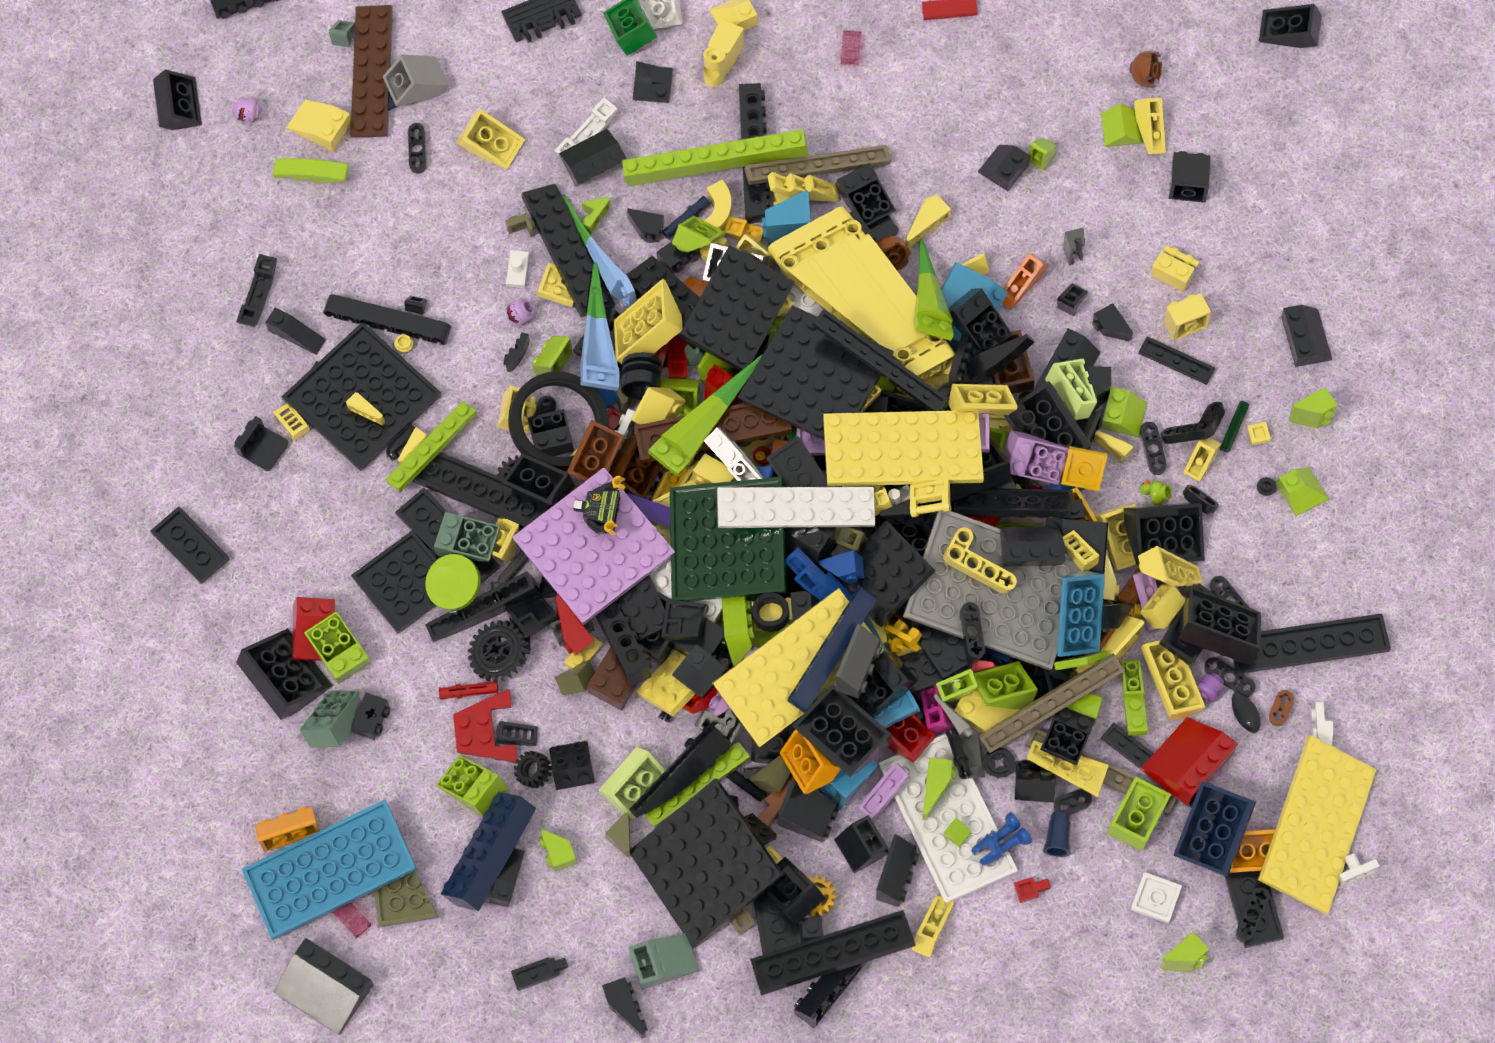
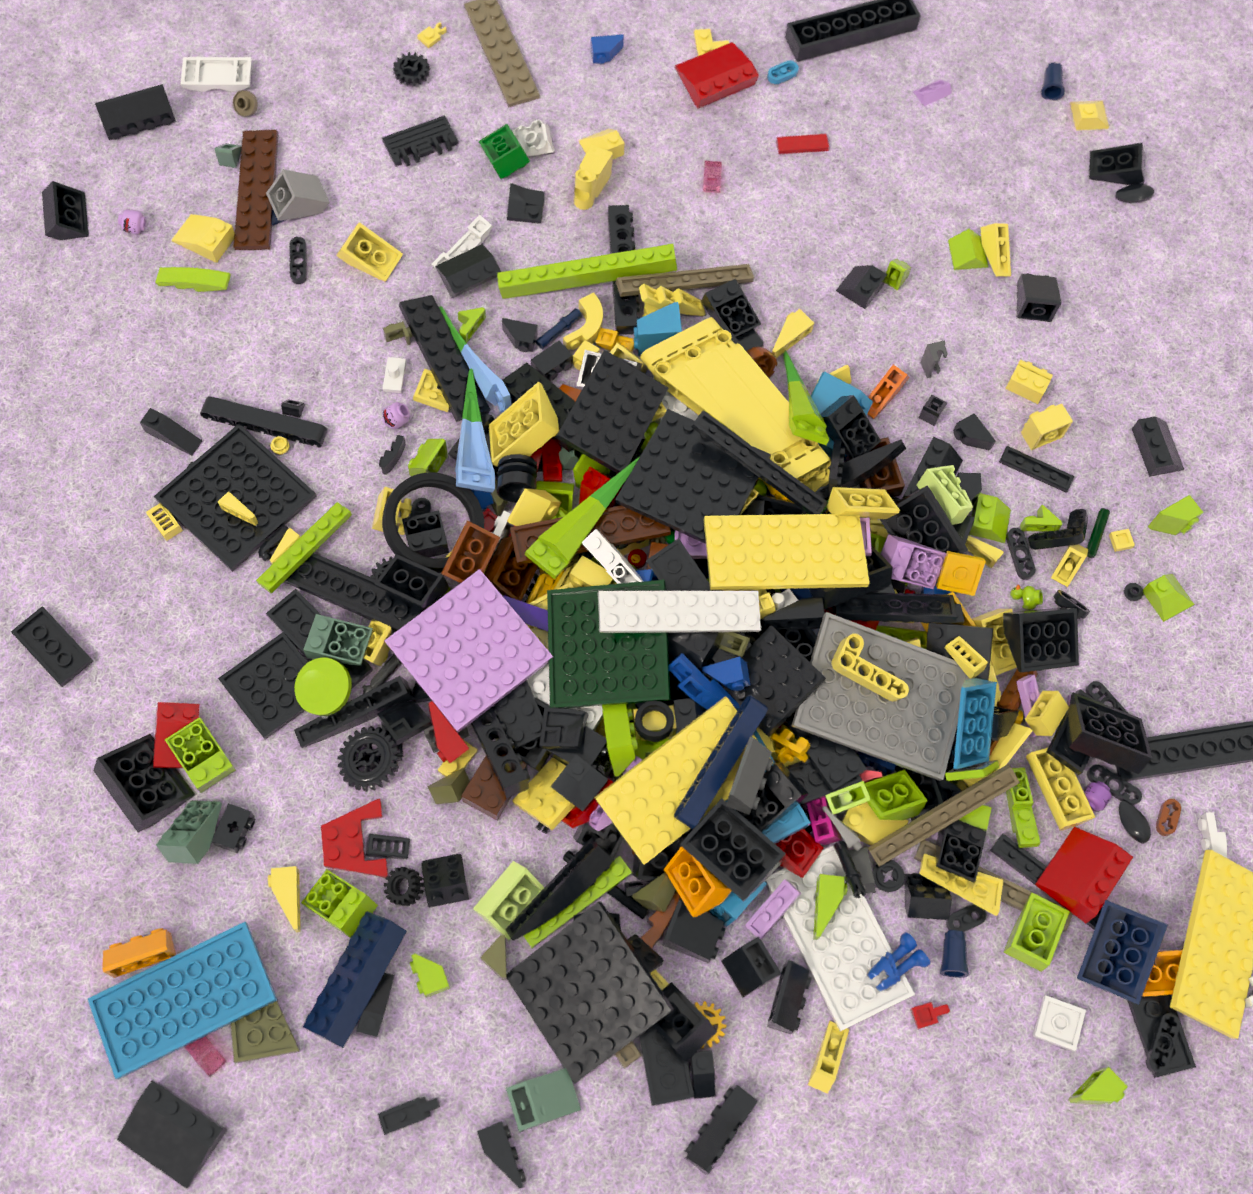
camera: 10 degrees left, 0 degrees up
(258, 291) = (136, 394): black slope -> none
(260, 444) = (129, 544): black bracket -> none
(422, 772) = (286, 888): none -> light yellow slope
(468, 690) = (328, 801): red pin -> none
(602, 507) = (477, 610): black torso -> none
(695, 234) = (568, 342): lime slope -> none
(832, 952) = (725, 1093): black plate -> none
(930, 492) = (813, 597): light yellow plate -> none
(957, 832) = (851, 954): lime slope -> none
(969, 645) = (871, 745): black beam -> none
(1032, 546) = (921, 653): black slope -> none
(1146, 66) = (988, 197): dark orange cylinder -> none
(1169, 568) = (1050, 674): light yellow wedge -> none
(1180, 416) = (1045, 522): none -> lime slope
(1307, 58) = (1134, 193): none -> black arm

